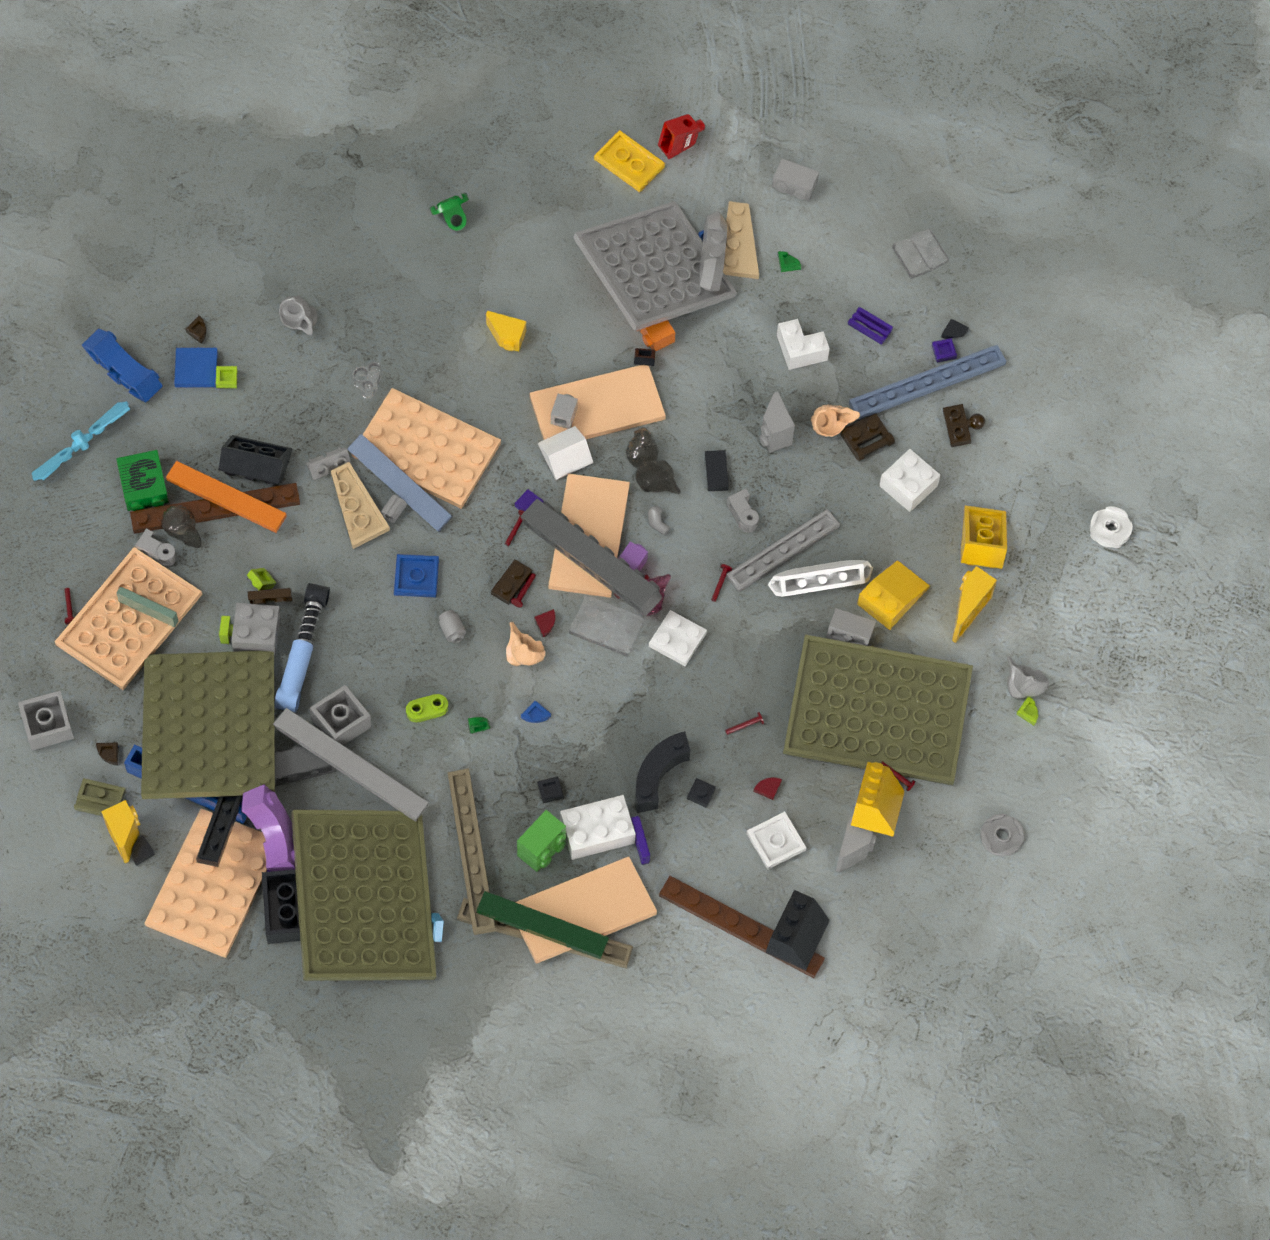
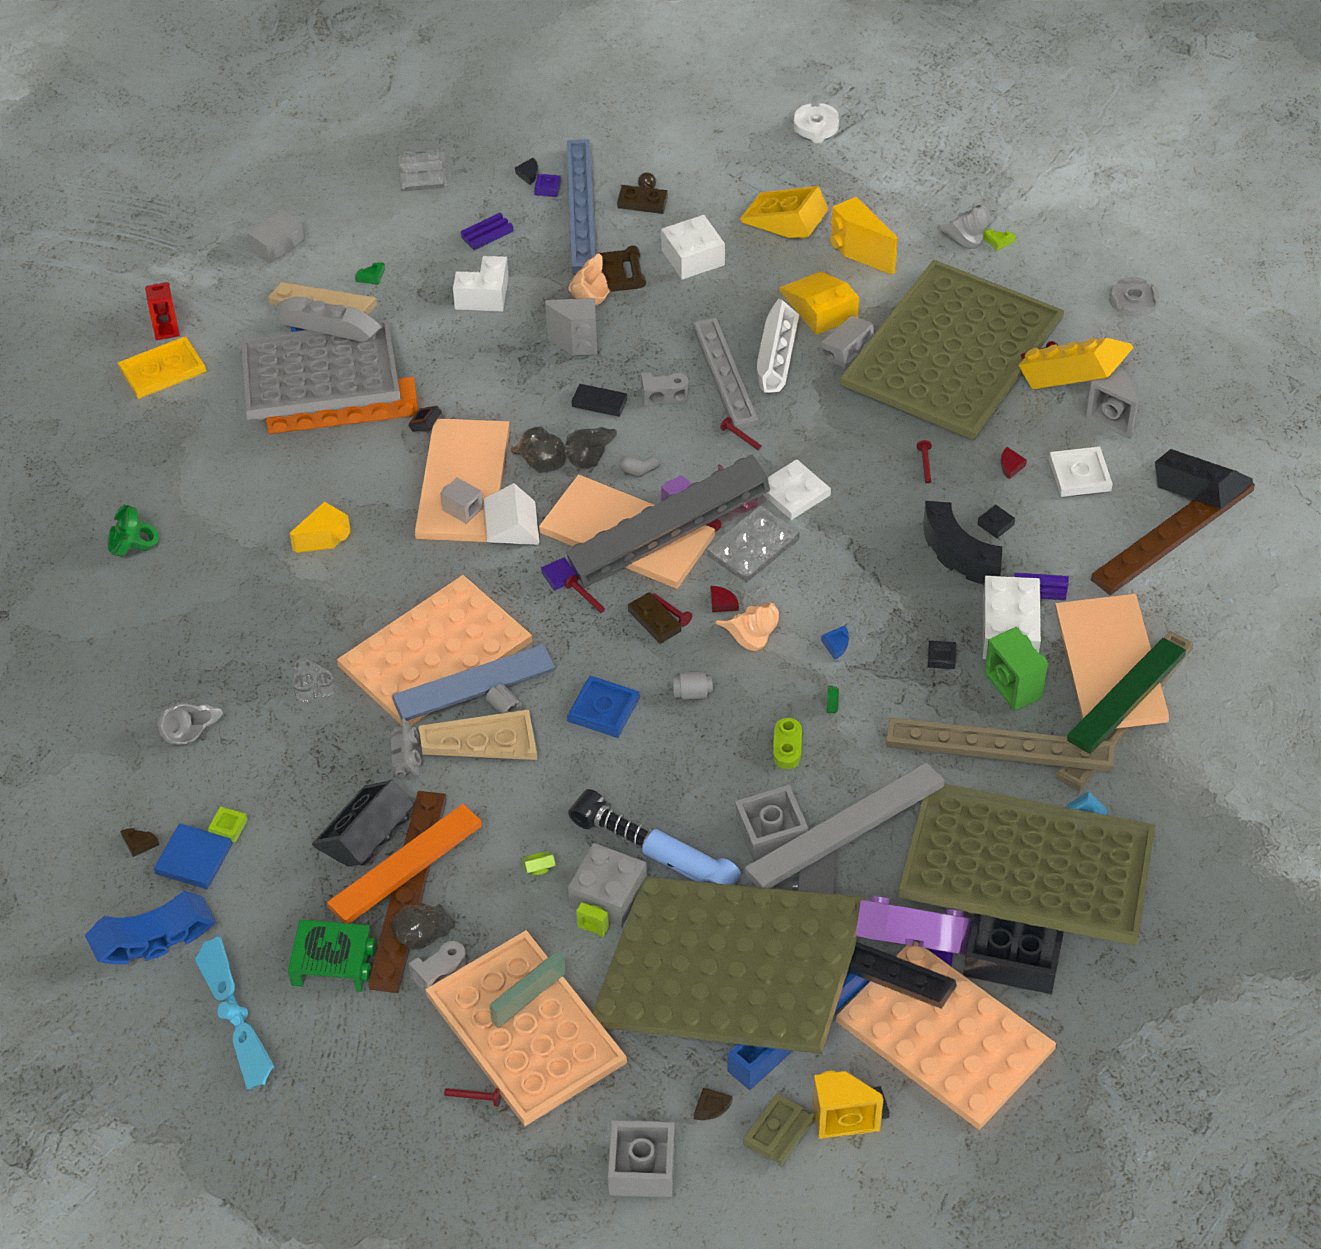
camera: 65 degrees left, 15 degrees down
(276, 595) = (570, 859): dark brown plate -> none

